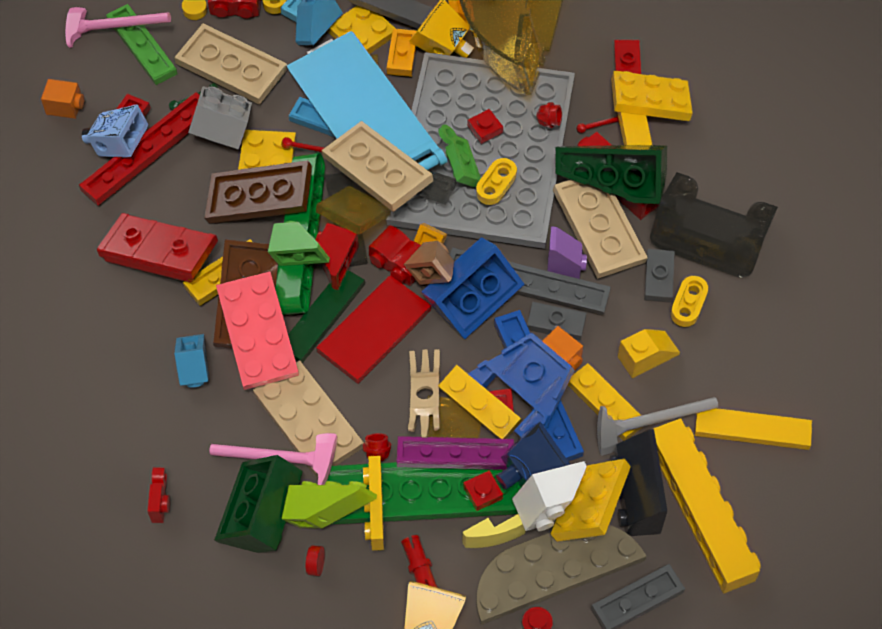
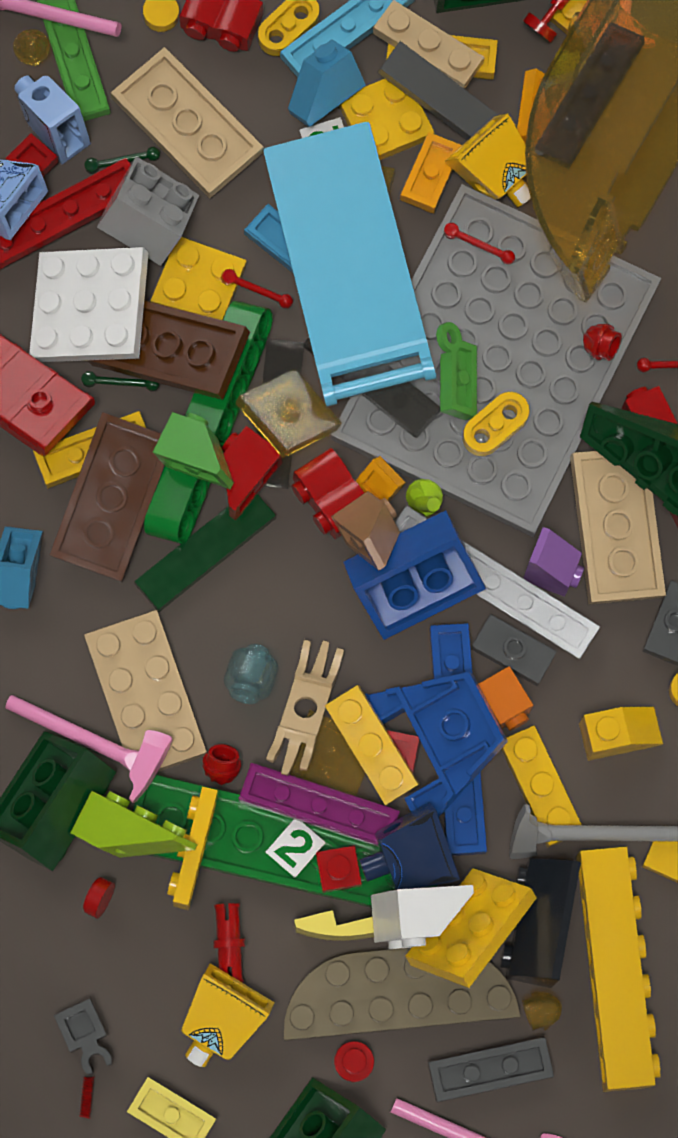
camera: 10 degrees right, 15 degrees up
(113, 47) = (31, 47): none -> clear yellow plate
(140, 78) = (52, 116): none -> light blue torso
(196, 183) = (89, 305): none -> white plate
(253, 223) = (89, 380): none -> dark green hinge
(257, 330) = (110, 556): coral plate -> none
(373, 329) = (268, 589): red tile -> none
(377, 166) = (337, 361): tan plate -> none
(379, 382) = (250, 674): none -> clear light blue head
(427, 80) = (452, 231): none -> red hinge
(447, 486) = (295, 847): none -> white sticker
(462, 239) = (424, 496): none -> lime plate
(485, 126) = (508, 330): red plate -> none
(659, 547) = (542, 1010): none -> clear yellow plate

